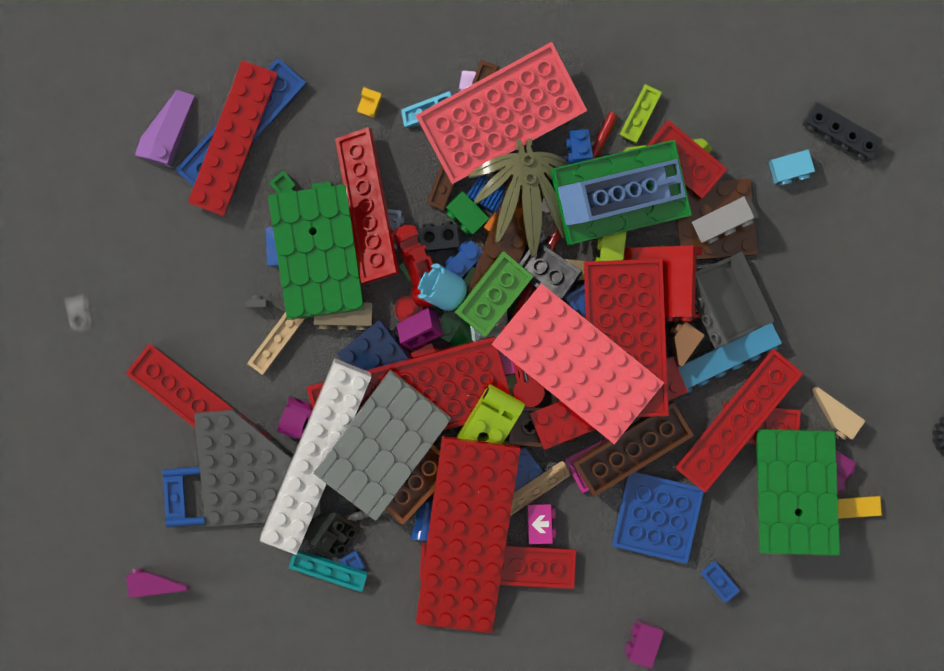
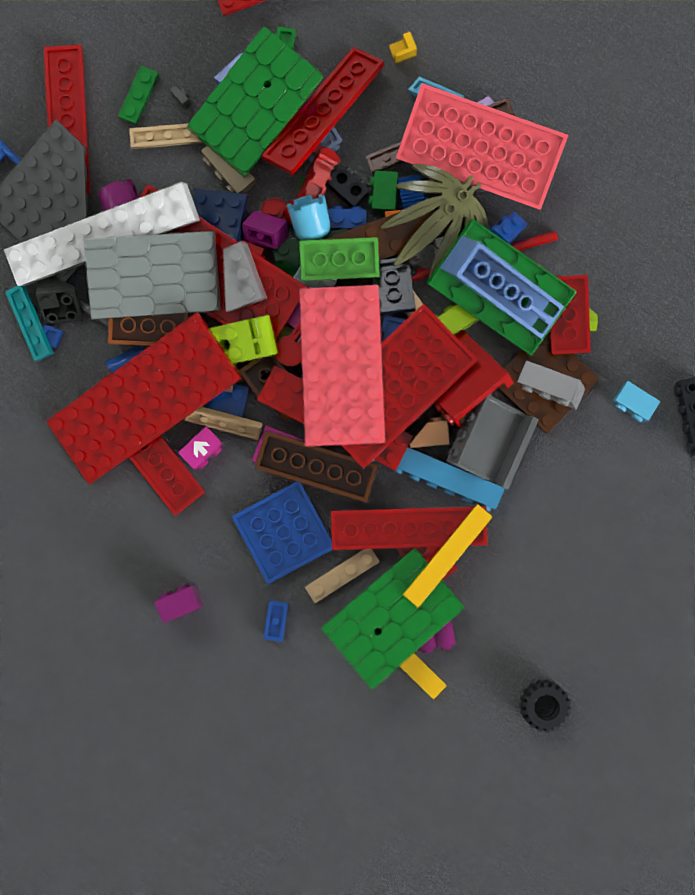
camera: 50 degrees right, 0 degrees up
(226, 334) = (138, 95): none -> green plate
(444, 380) = (242, 279): none -> light grey wedge
(640, 114) = (574, 254): lime plate -> none
(727, 502) = (341, 574): none -> tan plate
(786, 410) = (447, 555): none -> yellow tile
(839, 416) = (479, 603): tan slope -> none

